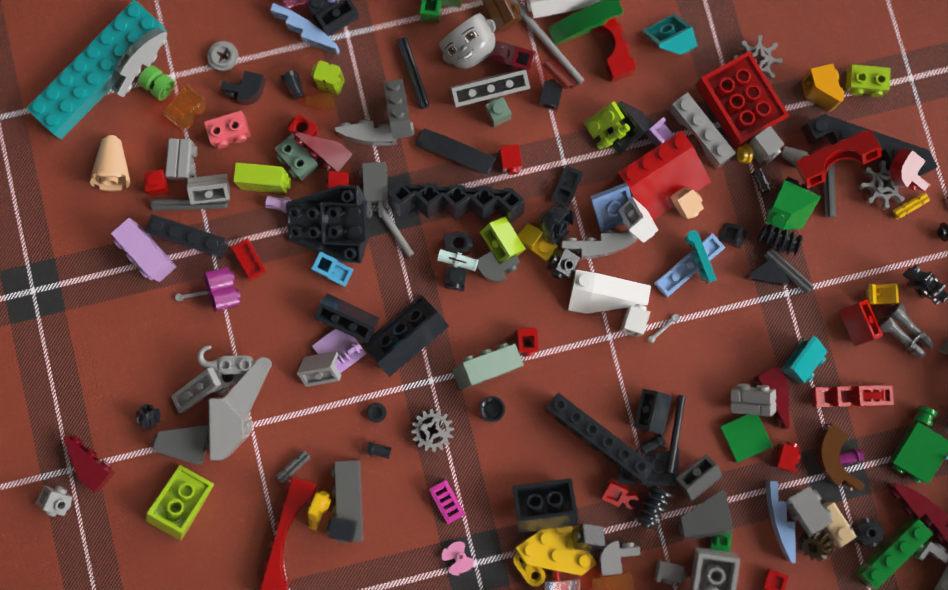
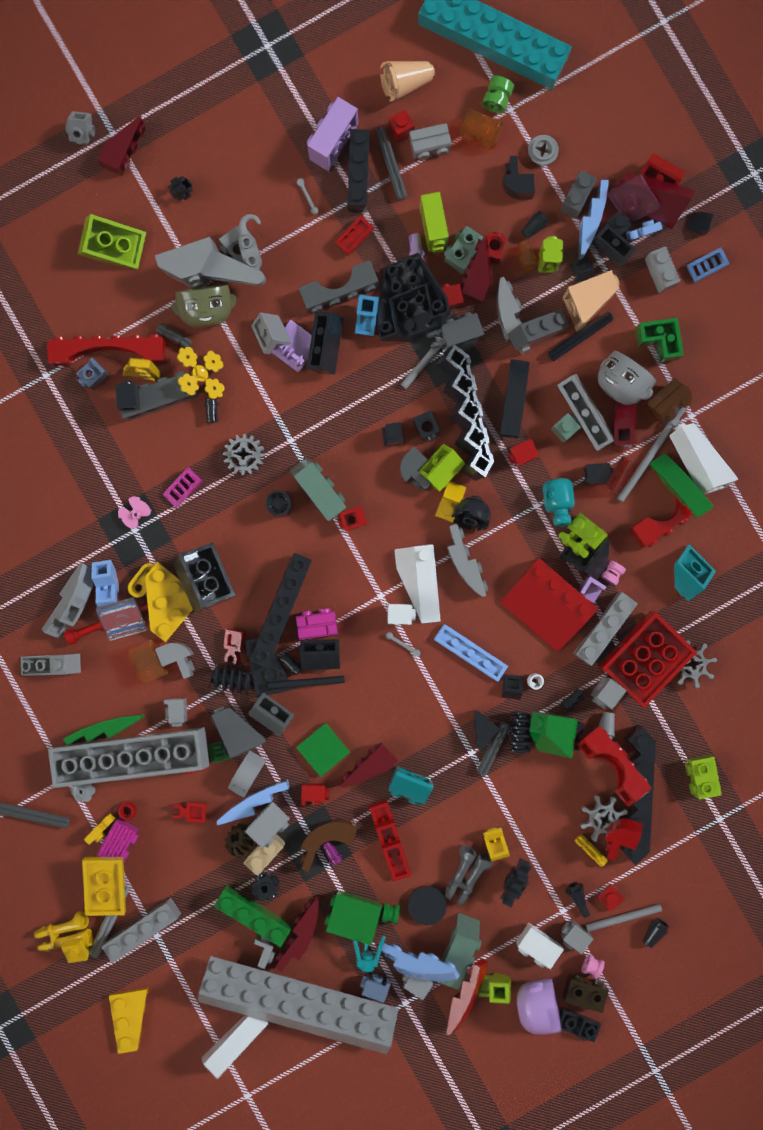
camera: 75 degrees right, 5 degrees up
(140, 52) = (521, 70): light grey slope -> none
(184, 444) = (164, 228): dark grey slope -> none
(196, 390) = (216, 224): light grey plate -> none
(208, 189) = (409, 176): light grey brick -> none
(221, 289) = (318, 218): magenta brick -> none
(227, 129) = (472, 176): coral brick -> none
(273, 426) = (204, 305): none -> olive piece
(277, 35) = (578, 194): none -> dark grey brick
(297, 313) = (362, 280): none -> dark grey arch
(309, 554) = (97, 377): none -> sand blue brick
(339, 450) = (199, 373): none -> yellow plant
(351, 52) = (582, 270): none -> black slope
(376, 412) = (246, 398): black tile -> none
(381, 52) = (588, 297): none -> light nougat slope
(405, 335) = (325, 403): black slope -> none
(444, 256) = (409, 430): light aqua pin -> none
(562, 263) = (435, 530): black brick -> none
(564, 138) = (559, 499): none -> teal piece
(567, 186) = (513, 514): black slope -> none
(588, 538) = (185, 626): brick -> none
(607, 205) = (504, 563): medium blue plate -> none
(622, 406) = (316, 625): none -> dark pink brick
(638, 220) = (497, 589): white brick -> none
(647, 104) = (615, 569): none -> bright pink wheel
(687, 202) = (530, 633): light nougat brick -> none
(700, 257) = (480, 659): teal plate -> none
(737, 207) = (538, 677): none -> white hinge
(745, 154) = (594, 676): yellow plate -> none
(751, 519) = (246, 774): none -> light grey brick
(753, 400) = (357, 746): light grey brick -> none
(822, 87) = (682, 733): light orange slope -> none
(829, 193) = (581, 768): dark grey axle -> none
(860, 323) = (461, 829): red brick -> none
(924, 378) = (427, 905): none -> black tile

